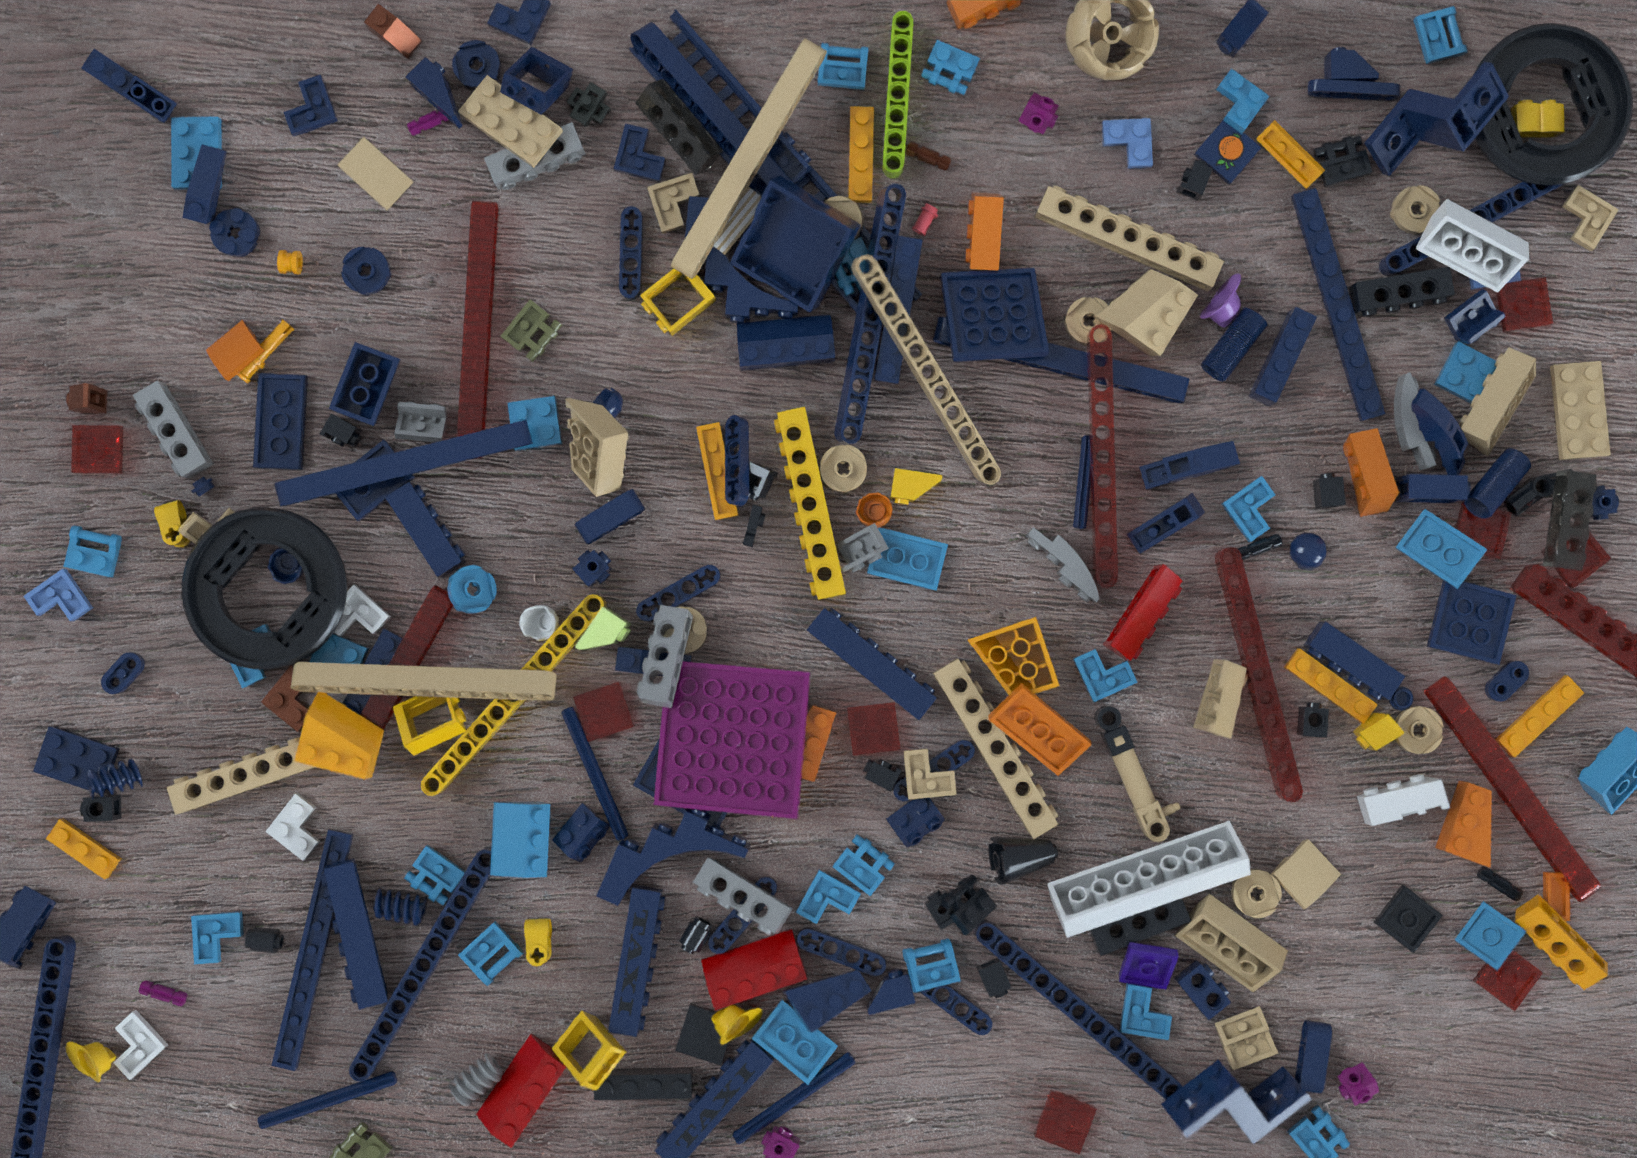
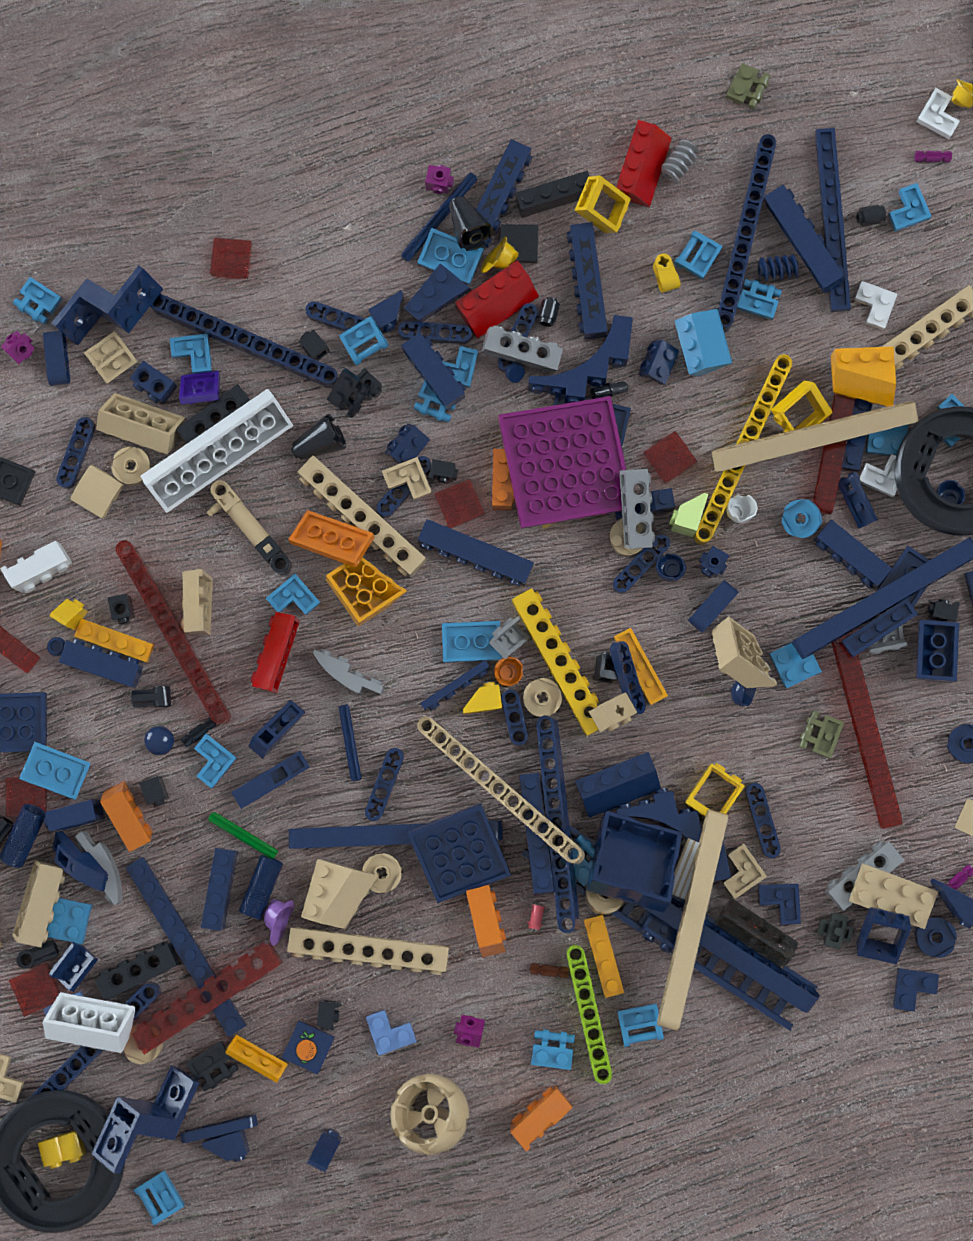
camera: 165 degrees right, 5 degrees down
(284, 702) = (914, 391): copper plate -> none
(327, 1100) = (785, 116): dark blue axle -> none
(398, 592) = (857, 500): none -> dark blue plate
(424, 430) = (879, 628): none -> dark blue plate
(594, 773) = (662, 409): dark blue axle -> none
(645, 577) = (670, 567): none -> dark blue hair
(652, 815) = (609, 390): none -> black axle
(756, 520) = (598, 636): black plate -> none
(759, 871) = (514, 372): none -> dark blue tile
(762, 1072) = (469, 225): none -> black cone
(766, 423) = (613, 712): none -> tan brick
(858, 901) = (433, 371): none -> dark blue brick
(887, 443) = (514, 708): none -> dark blue beam
(931, 513) = (462, 682): none -> dark blue plate
(1055, 421) = (381, 783): none -> dark blue beam
(1108, 445) = (335, 757): clear red beam -> none
(1238, 411) = (243, 835): none -> green axle
(1247, 100) = (304, 1096): dark azure plate -> none
(1297, 602) = (155, 697): none -> black piece
(1315, 927) = (73, 452): none -> dark blue beam
(1409, 206) = (147, 1040): none -> clear red brick
(1431, 730) = (26, 627): tan plate -> none
(1499, 343) = (38, 954): none -> black piece

